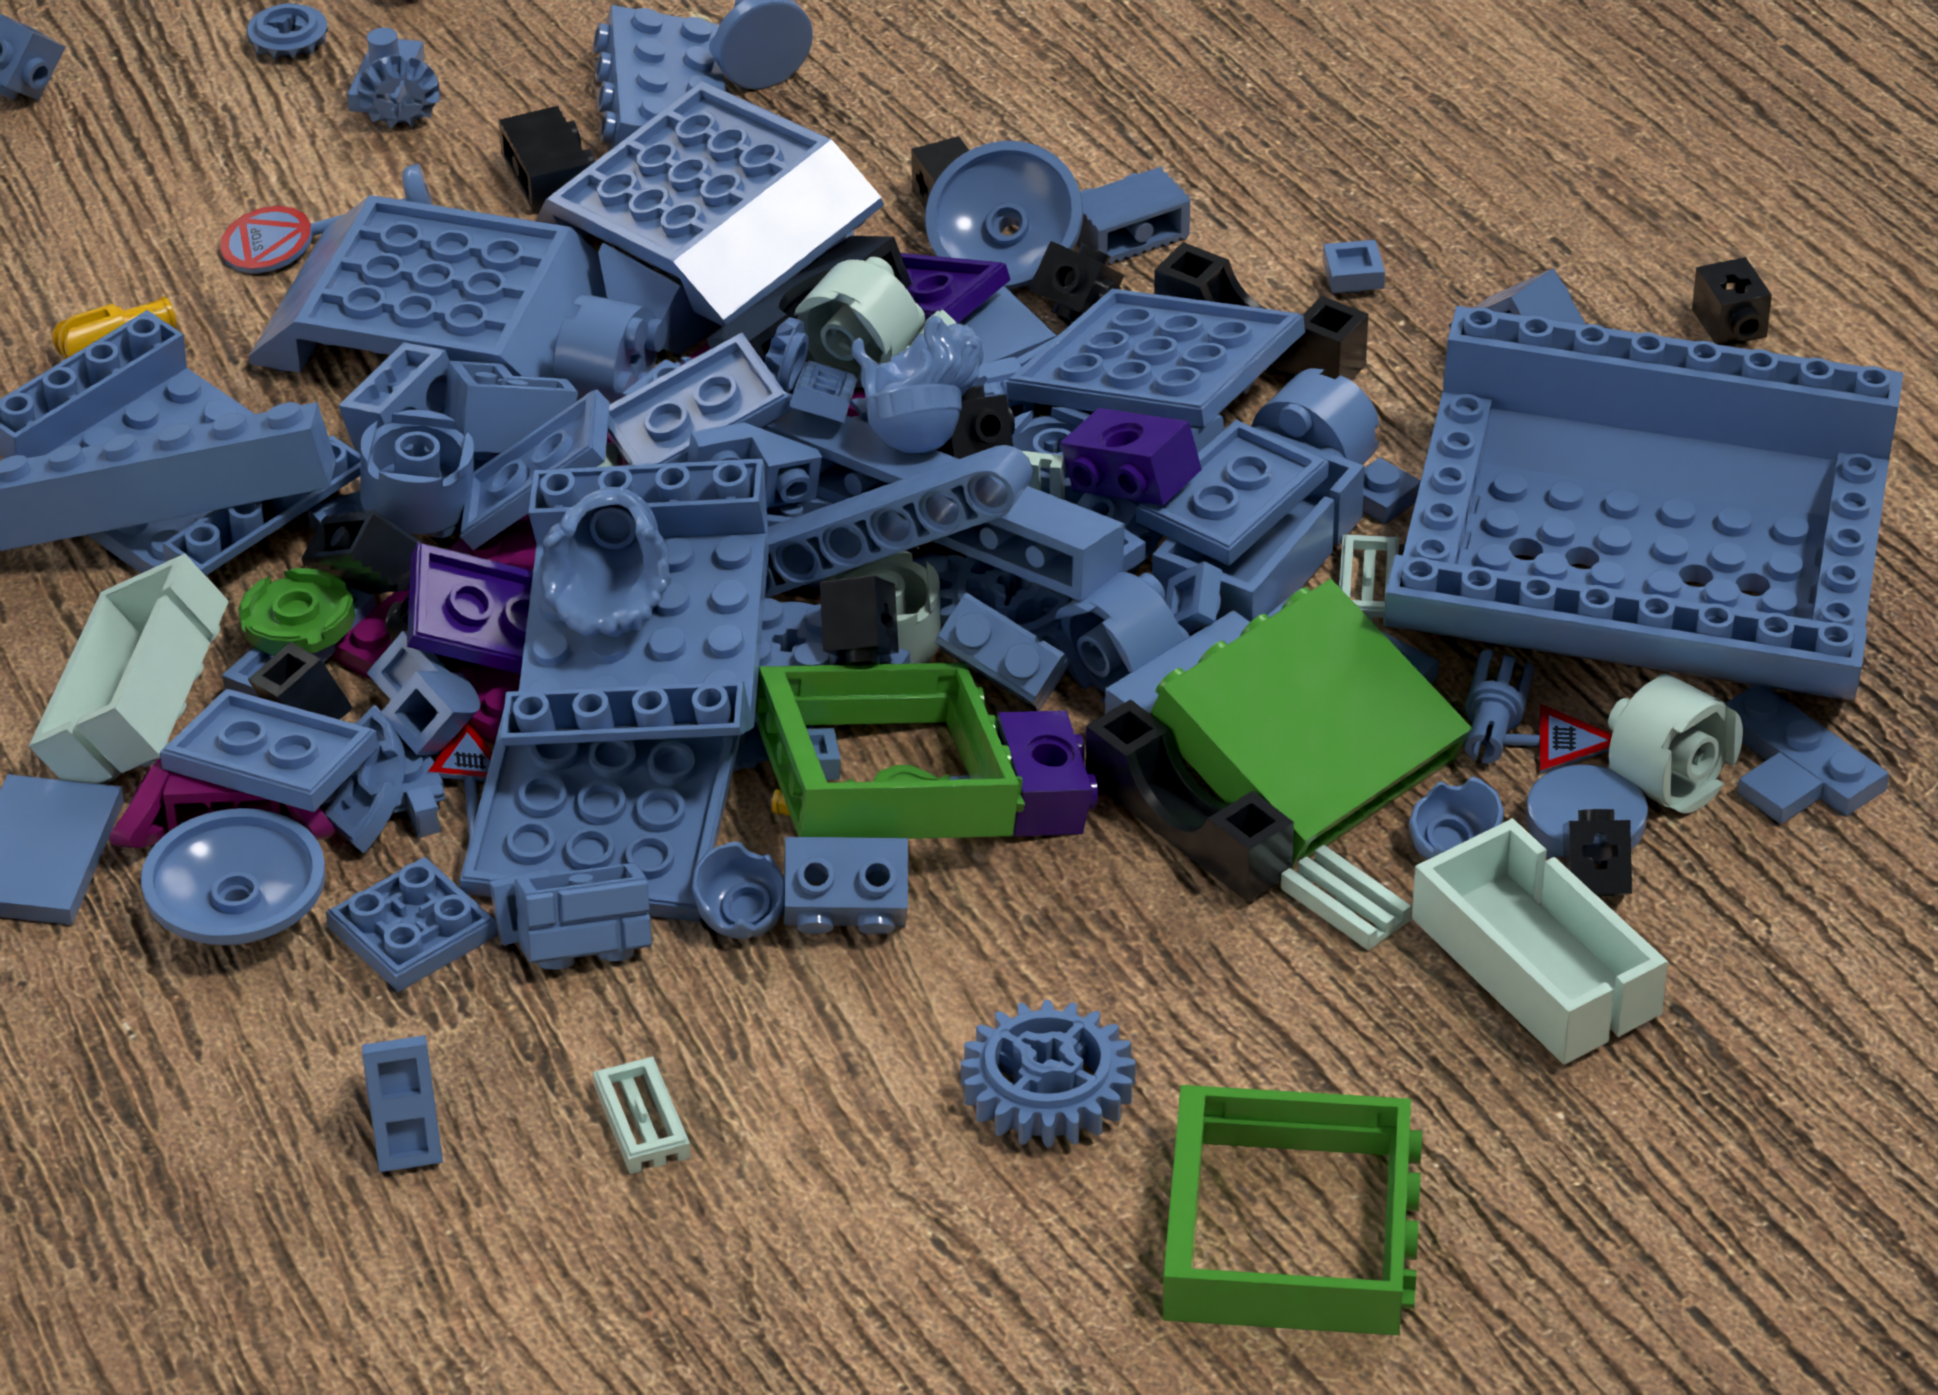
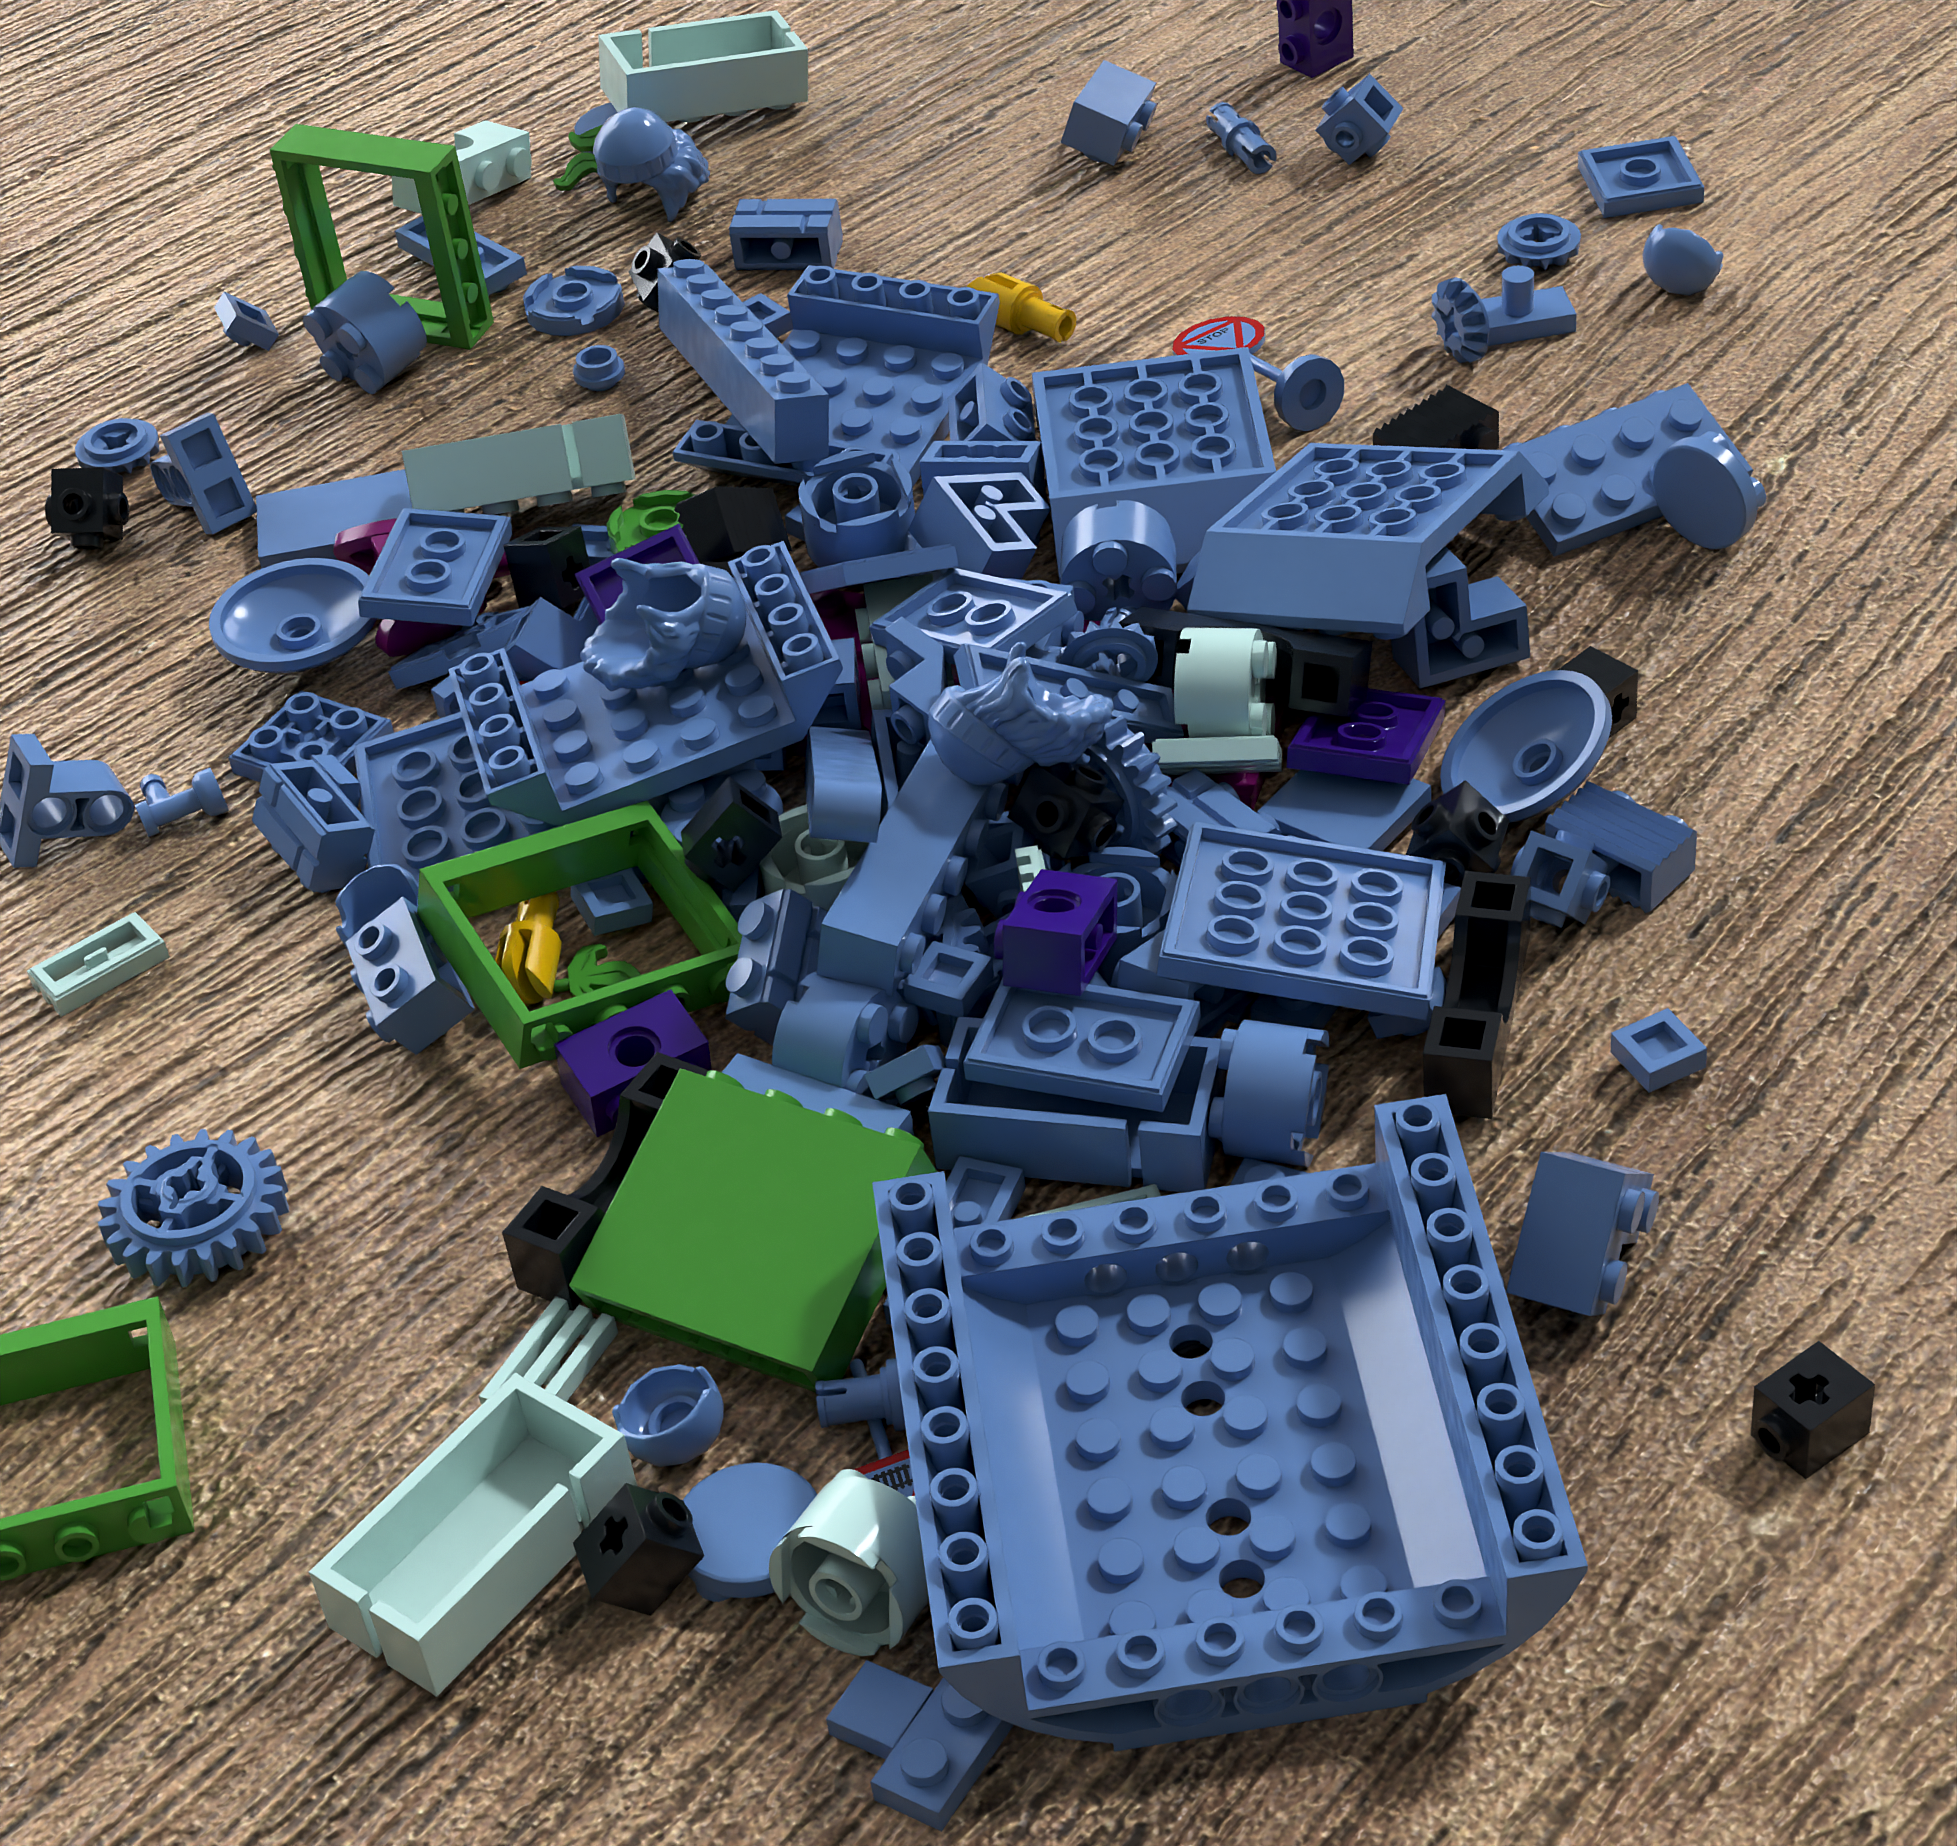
camera: 75 degrees right, 0 degrees up
(304, 376) = (990, 408): none -> medium blue brick
(445, 997) = (162, 808): none -> medium blue piece
(1153, 240) = (1551, 859): none -> medium blue brick

